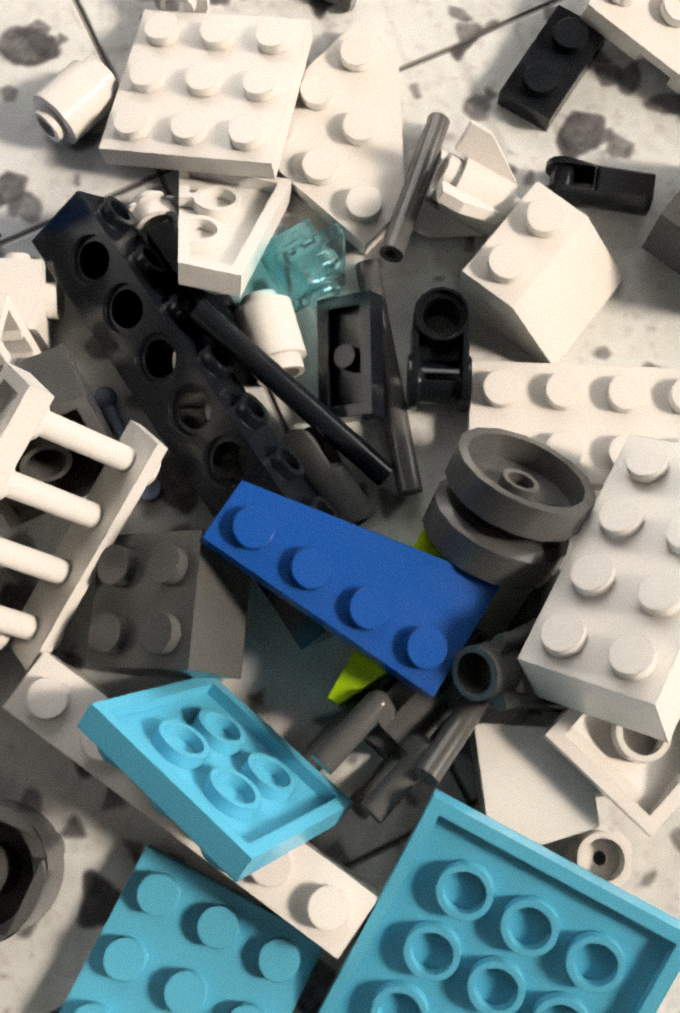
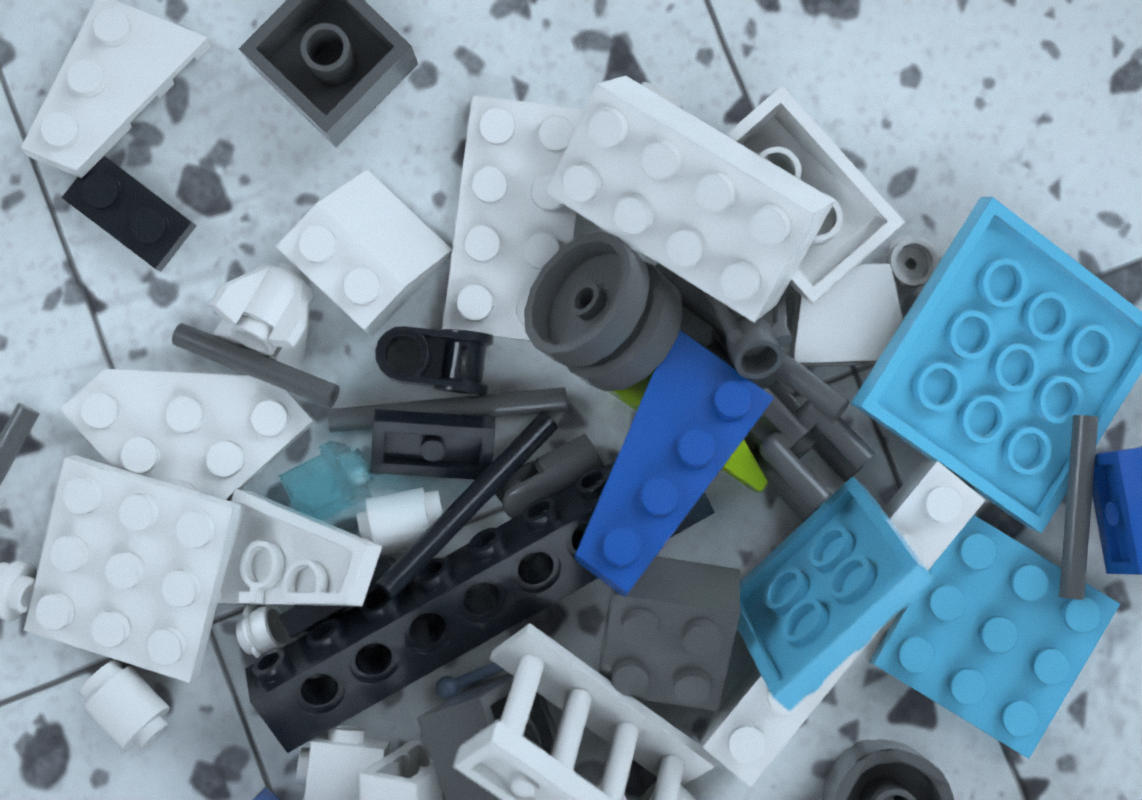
camera: 90 degrees left, 10 degrees up
(608, 186) = (273, 174): black bar -> none

